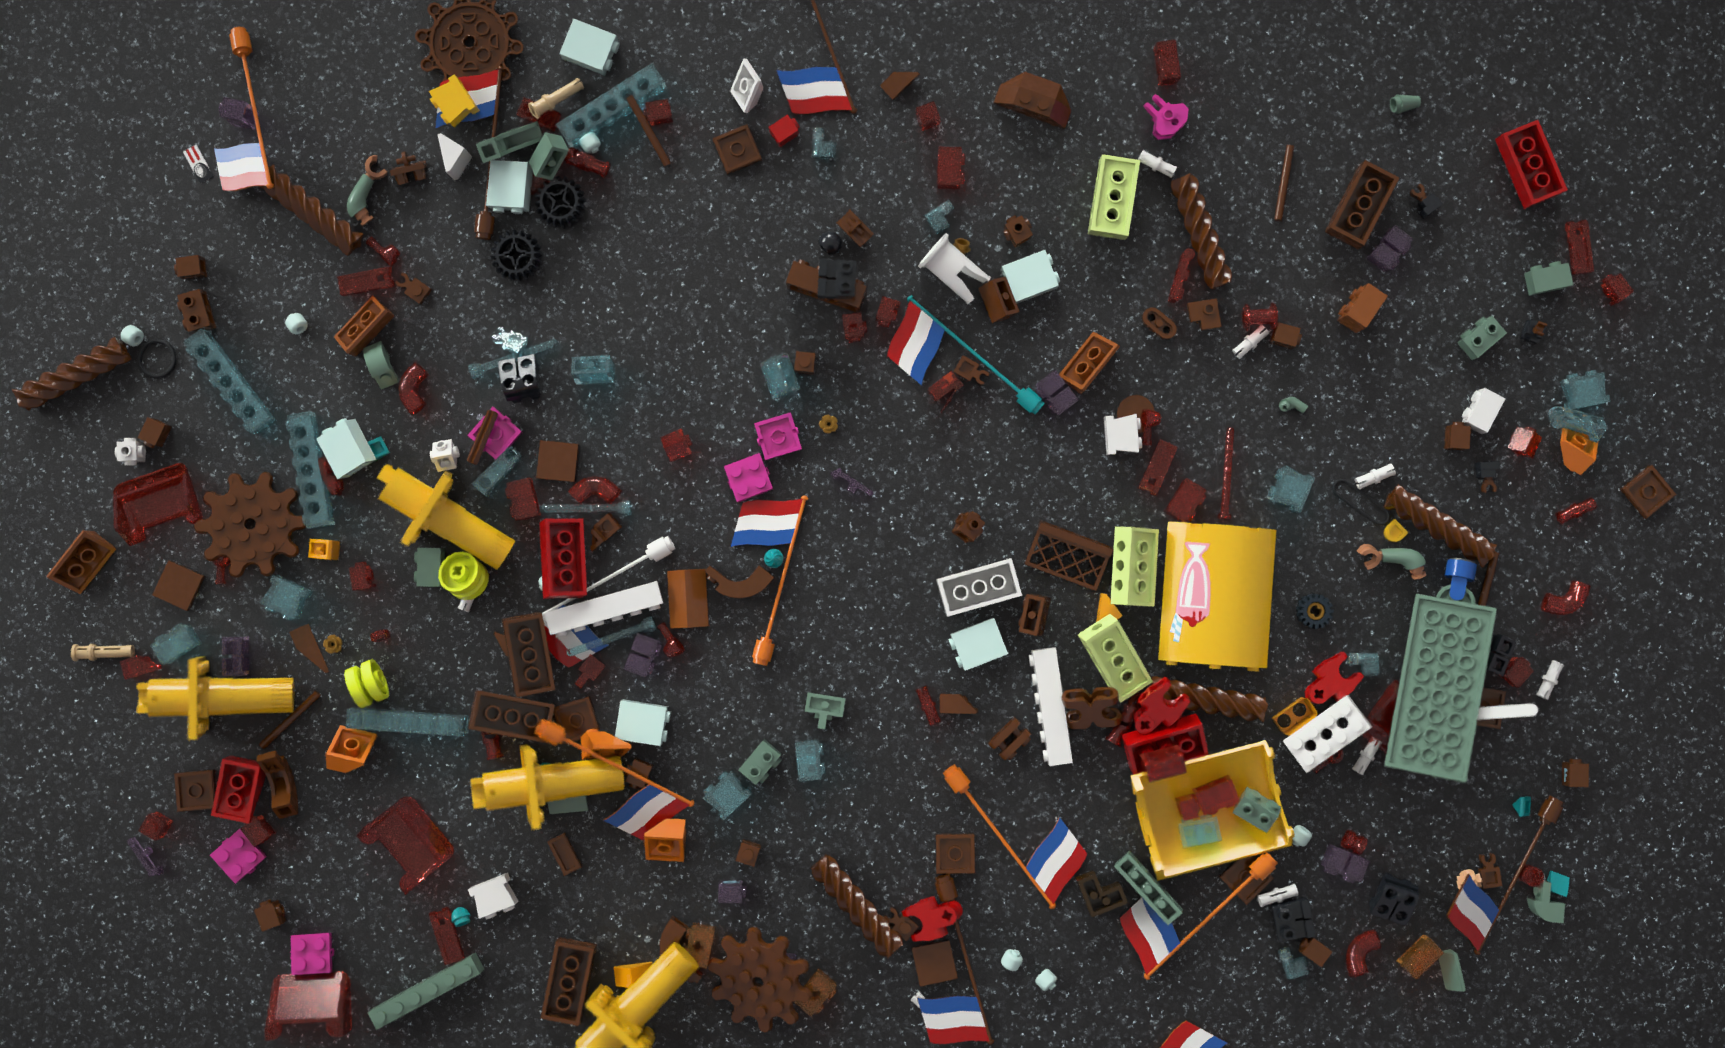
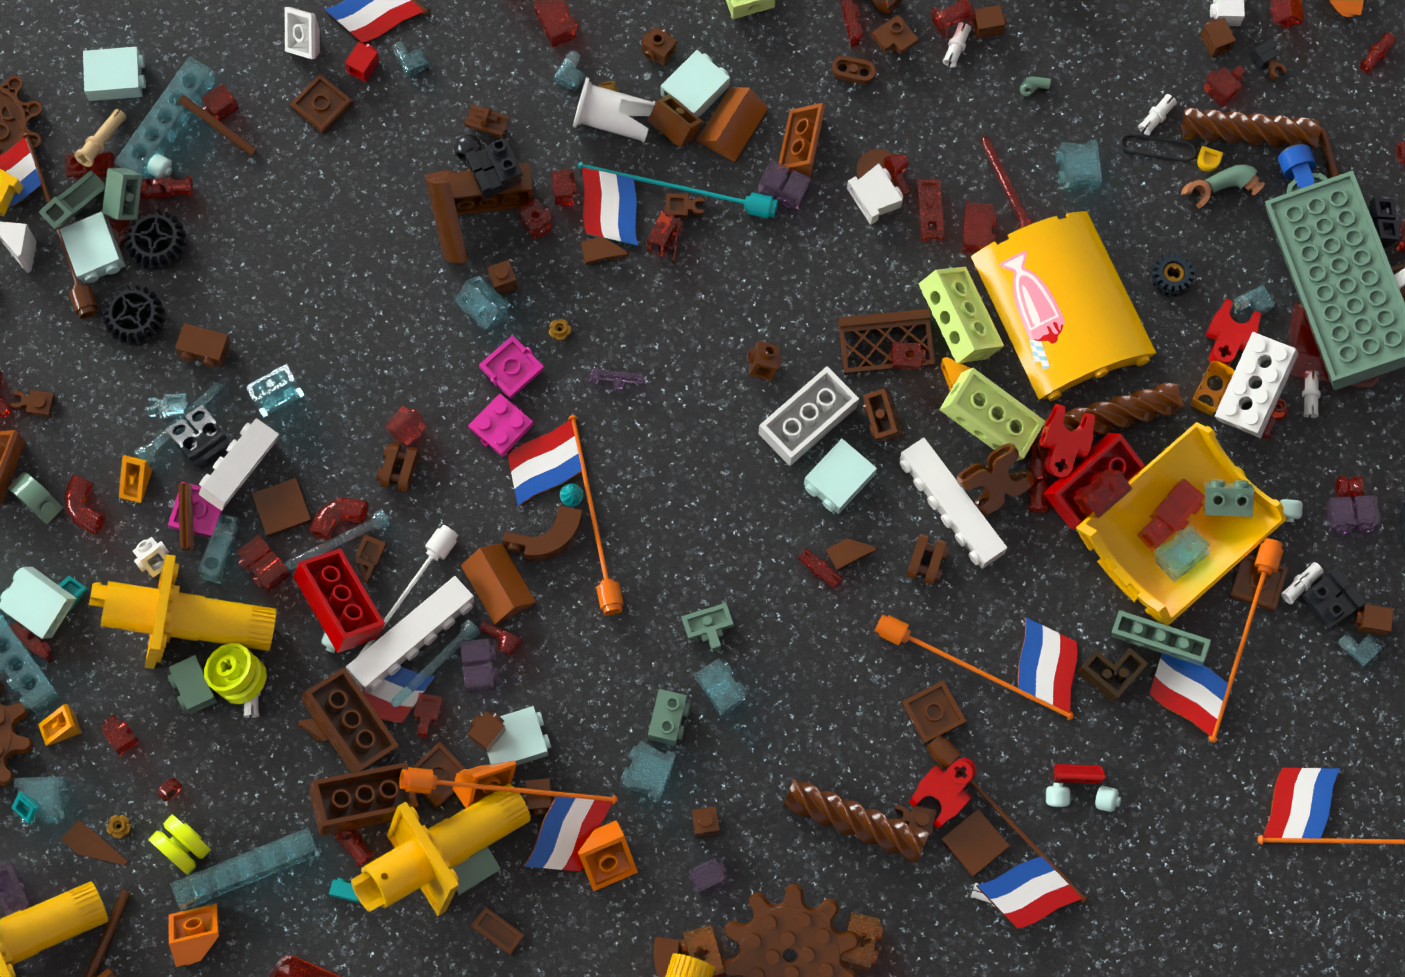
camera: 30 degrees left, 15 degrees down
(270, 602) = (25, 806): none -> teal slope
(459, 387) = (134, 478): none -> light orange slope
(469, 770) = (343, 890): none -> teal piece
(538, 416) = (238, 463): none -> white brick
(556, 306) = (202, 346): none -> reddish brown brick
(622, 711) = (486, 730): none -> reddish brown brick
(645, 475) = (392, 455): none -> reddish brown brick
(783, 297) = (446, 217): none -> reddish brown brick
(891, 375) = (601, 249): none -> reddish brown slope
(1035, 951) = (1078, 773): none -> red slope
(1043, 320) = (733, 122): none -> dark orange slope
(1074, 570) = (899, 359): none -> clear red brick
(1439, 478) = (1224, 85): none -> clear red brick

